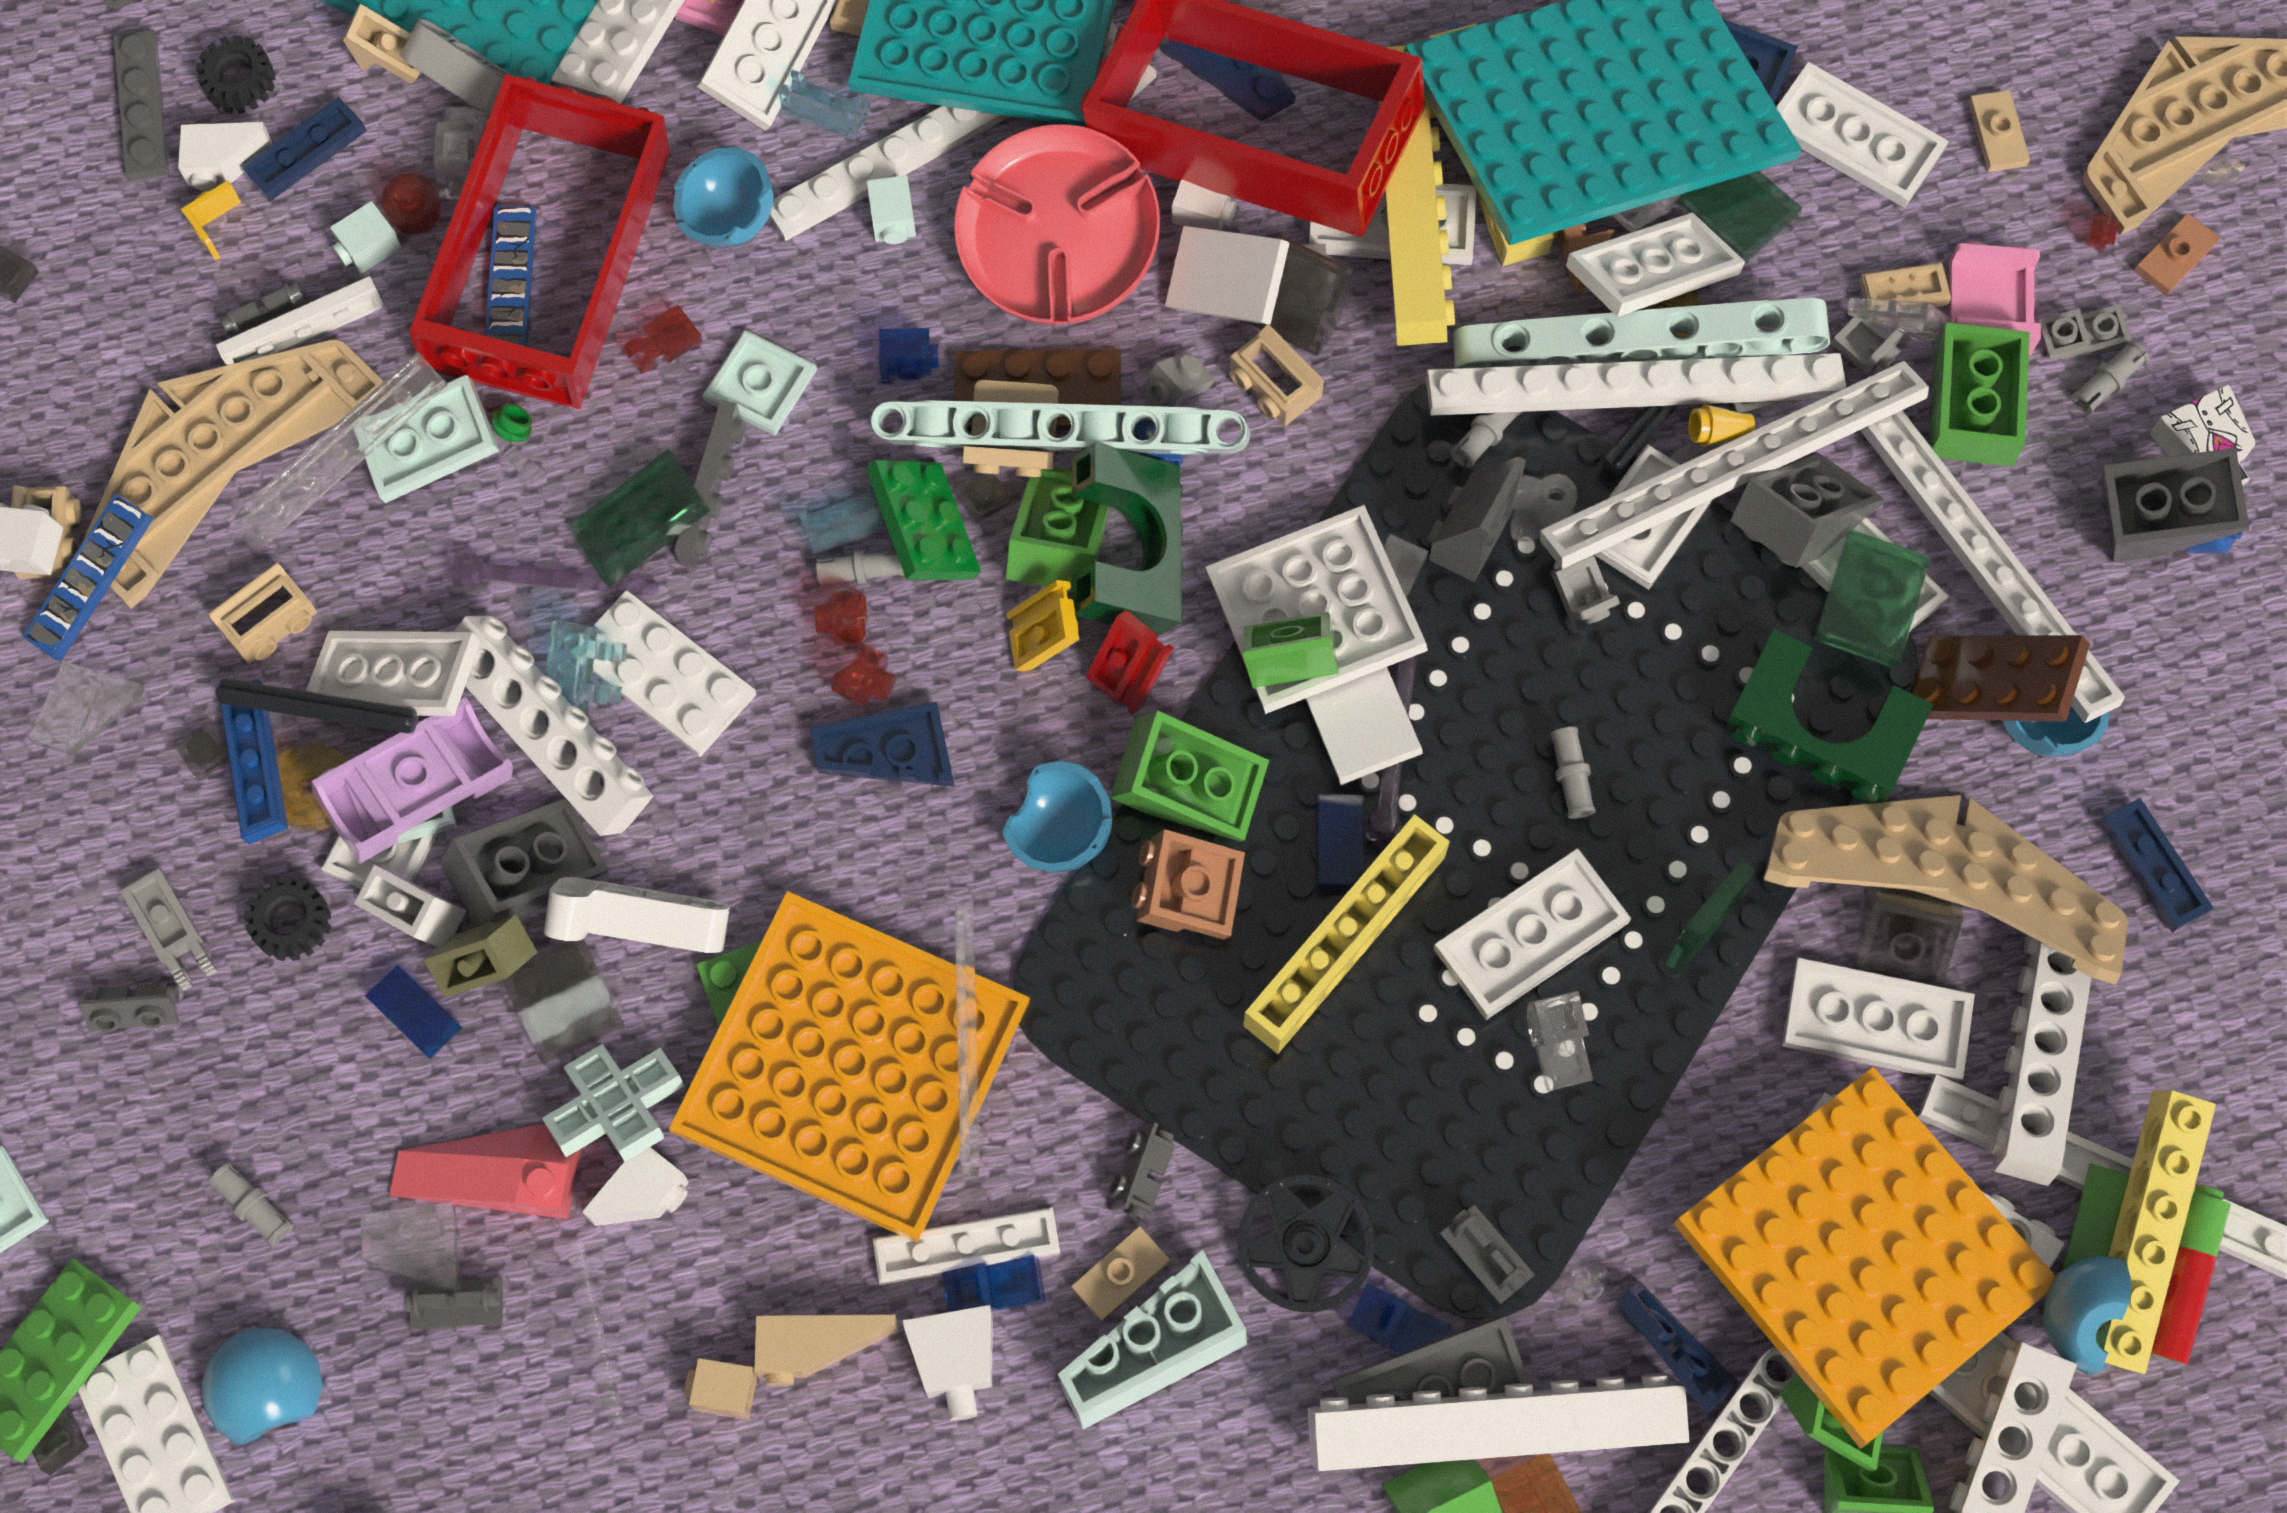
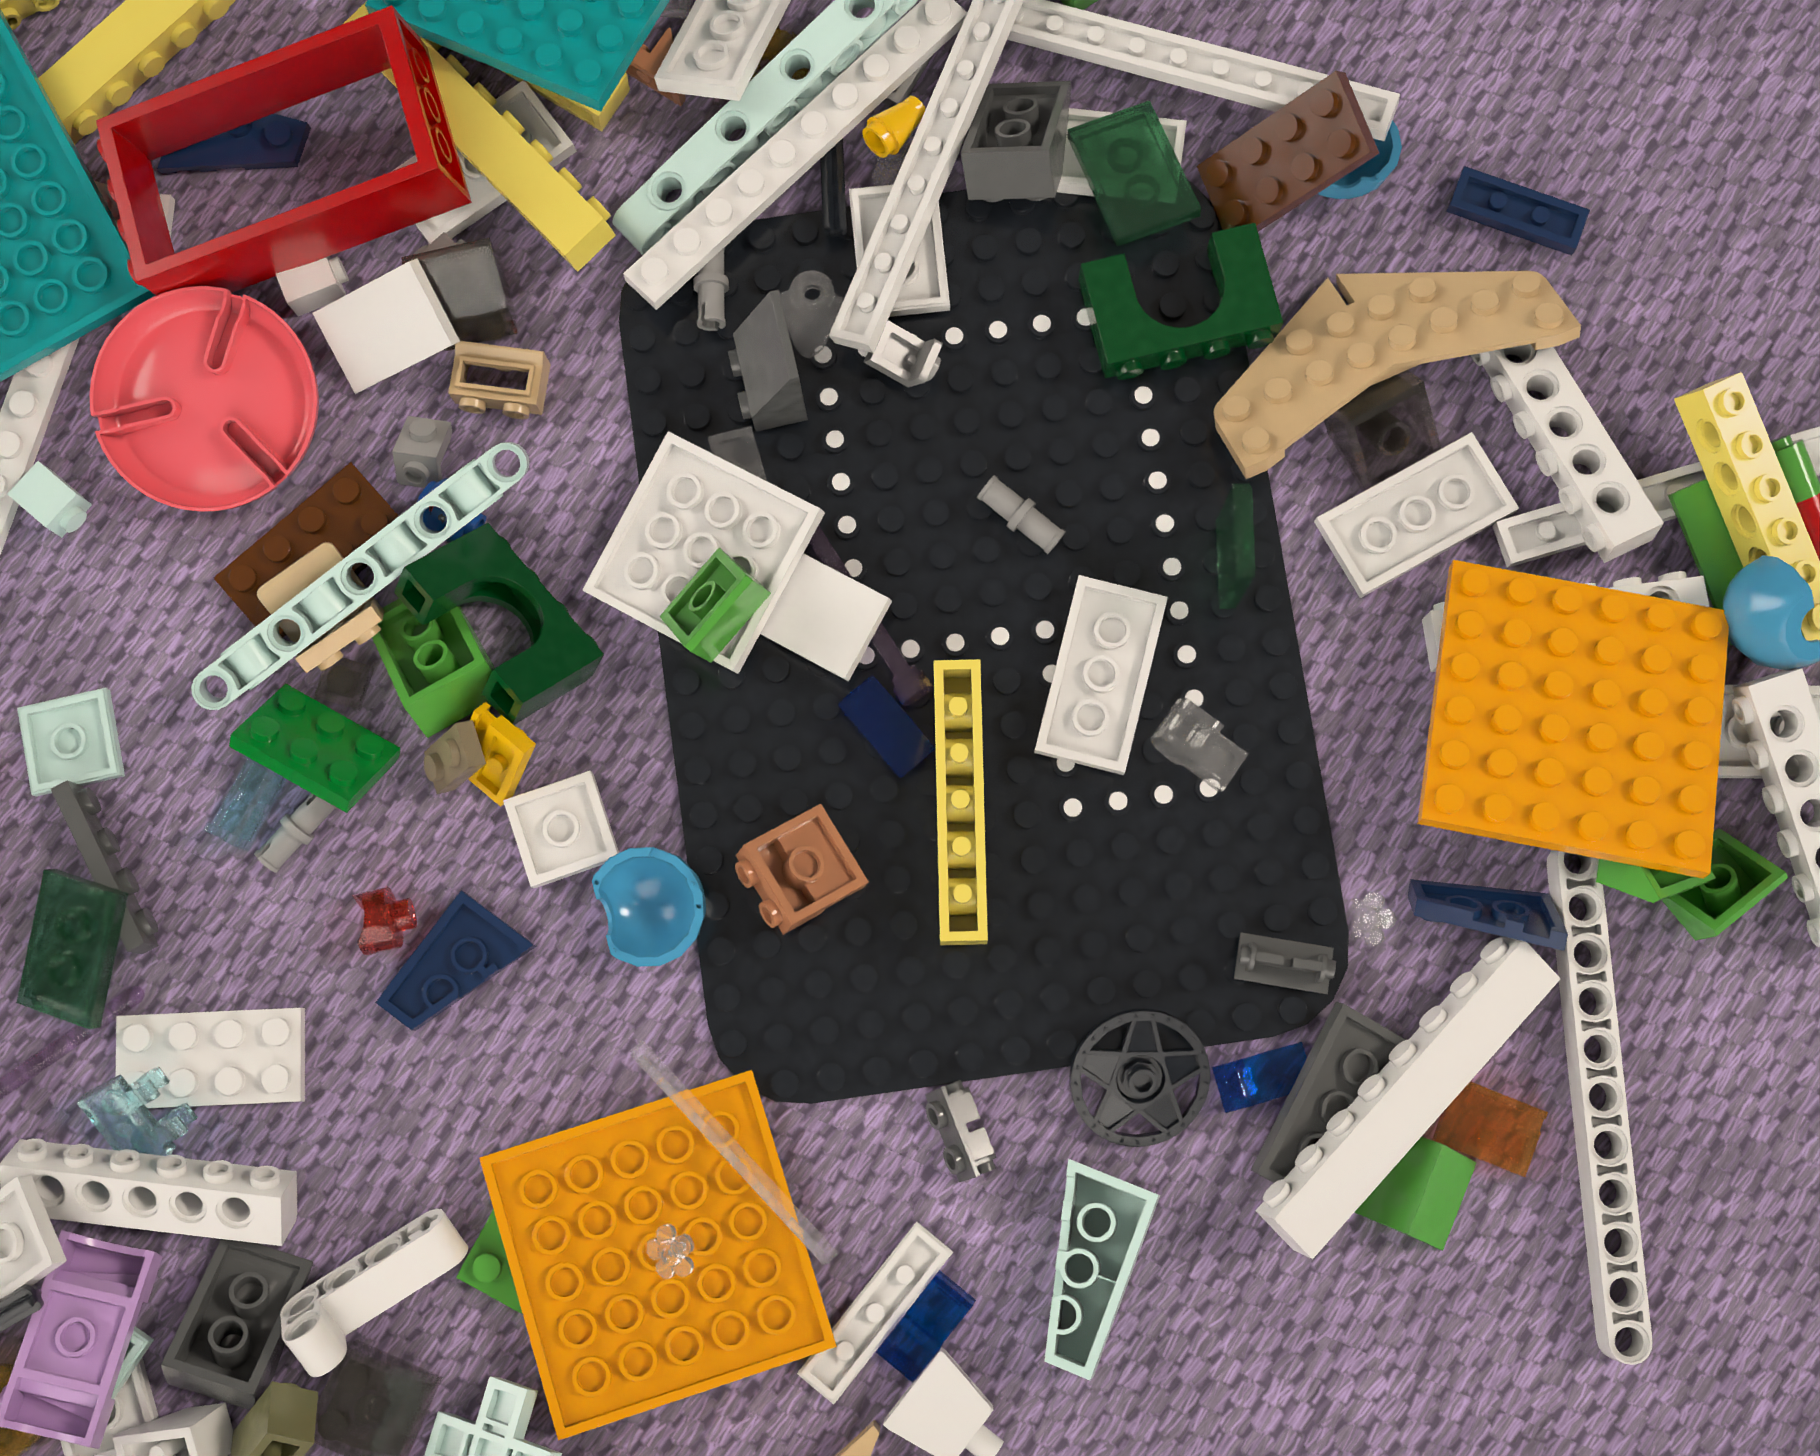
camera: 35 degrees left, 10 degrees up
(843, 616) = (320, 885): clear red piece -> none
(862, 1067) = (671, 1252): none -> clear plant
(907, 353) = (174, 615): clear blue brick -> none
(1013, 605) = (454, 757): none -> dark tan plate
(1043, 718) = (561, 829): none -> white plate
(1120, 1274) = (1015, 1227): tan plate -> none
(1129, 662) = (590, 724): red plate -> none
(1189, 776) = (722, 779): bright green slope -> none

